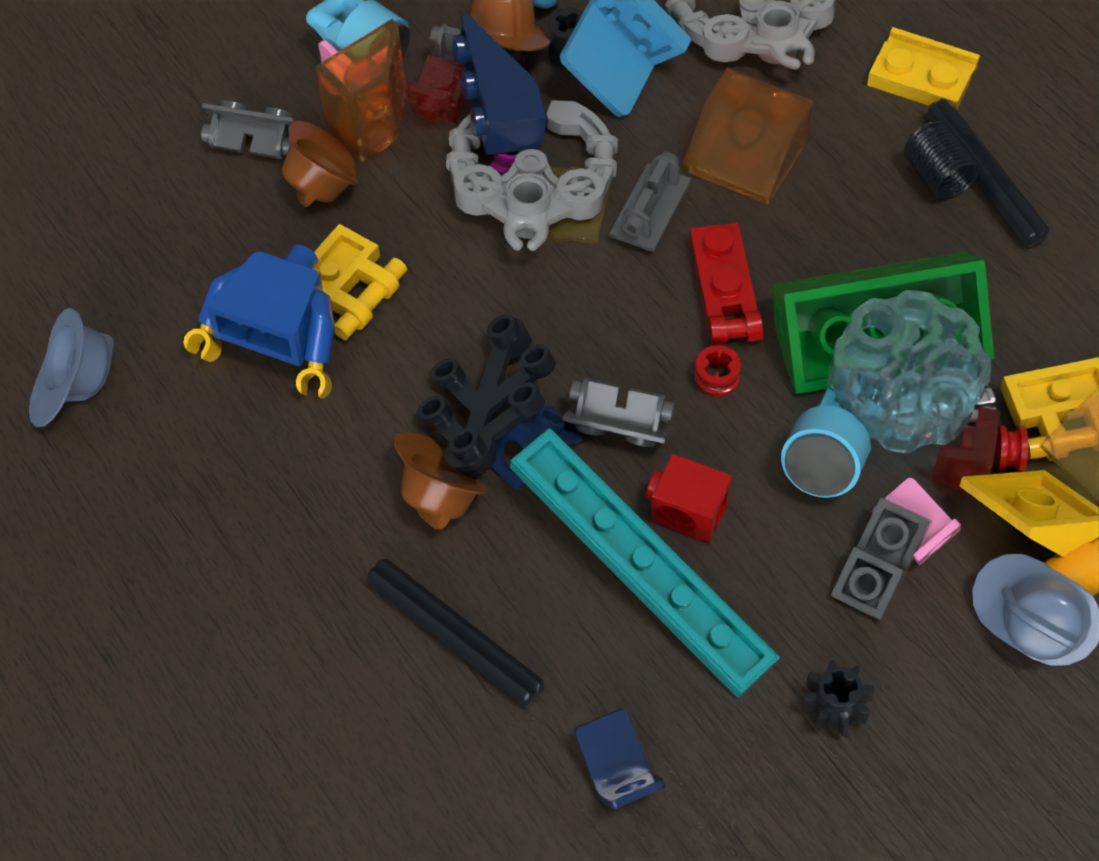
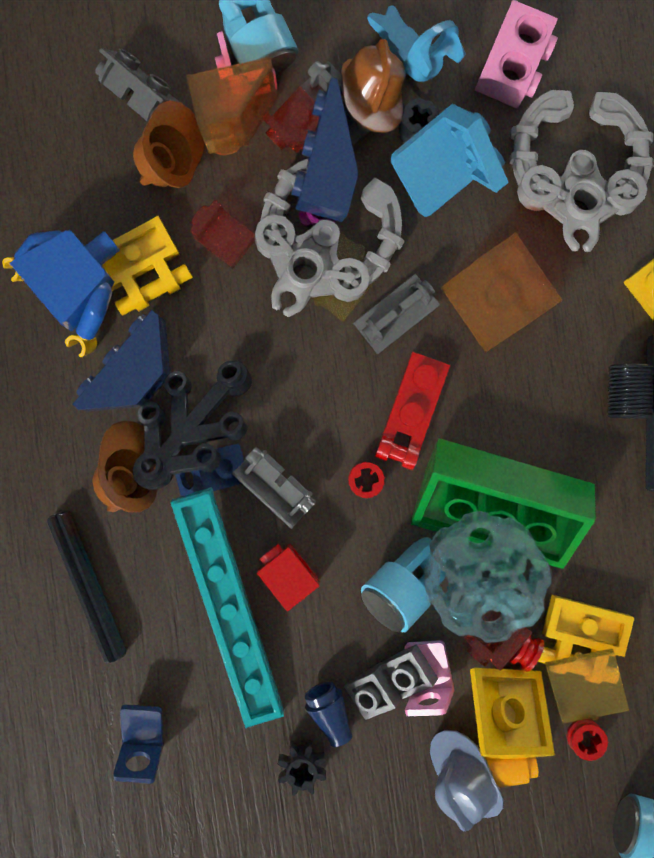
camera: 20 degrees right, 30 degrees up
(385, 383) = (130, 371): none -> dark blue slope
(417, 218) = (221, 233): none -> clear red bracket
(832, 624) = (328, 711): none -> dark blue cone

